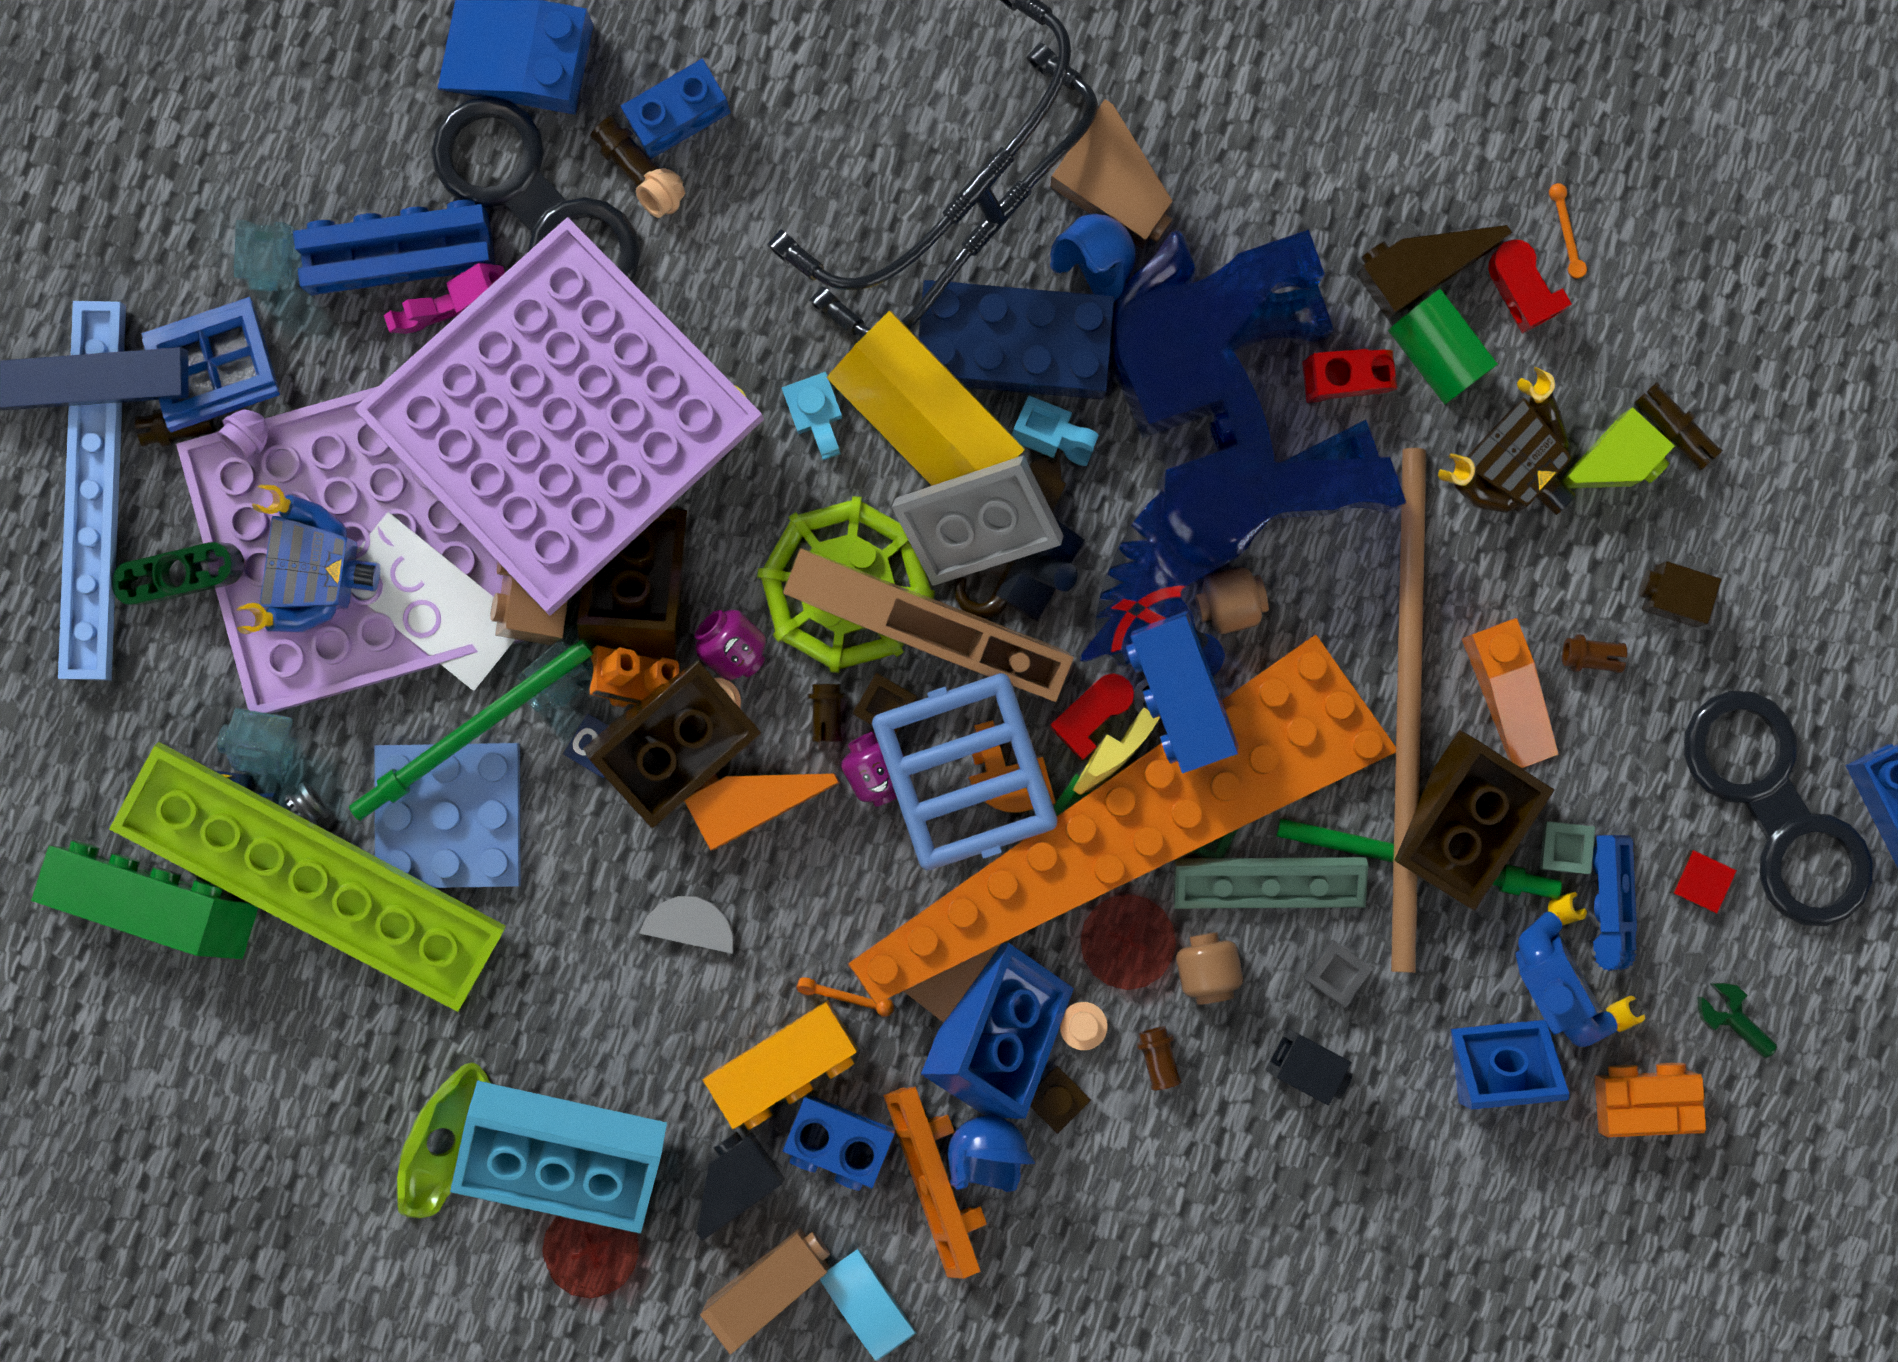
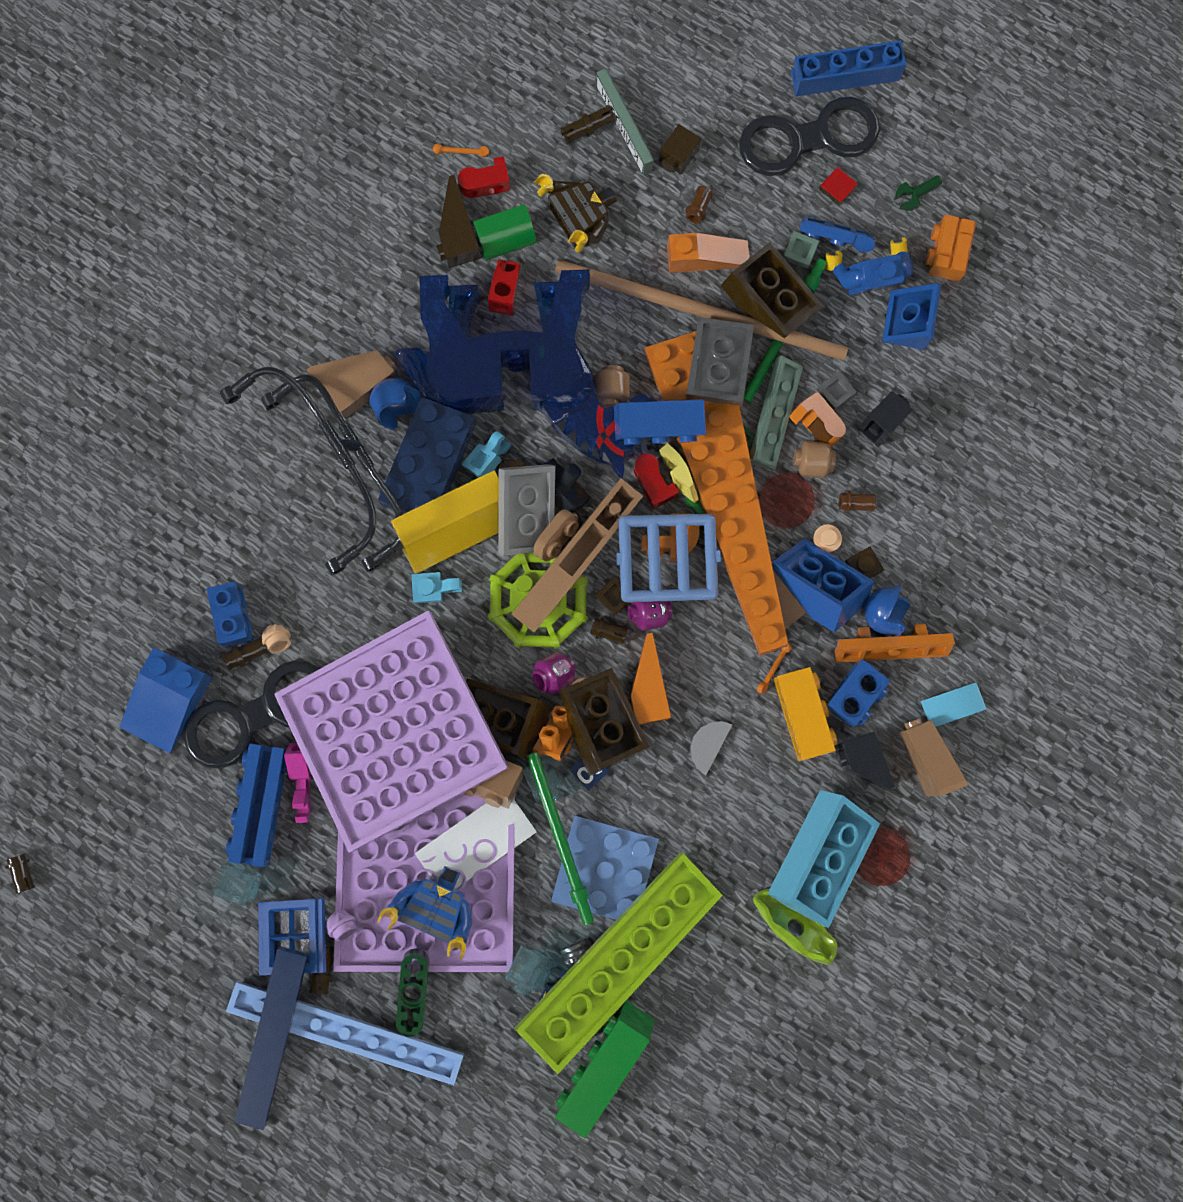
camera: 80 degrees left, 5 degrees down
(951, 580) = (555, 535): none -> medium nougat plate
(1278, 959) = (819, 419): none -> orange leg
(1322, 764) = (720, 361): none -> flat silver plate
(1622, 455) = (594, 156): lime slope -> none
(1701, 487) = (624, 122): none -> sand green tile

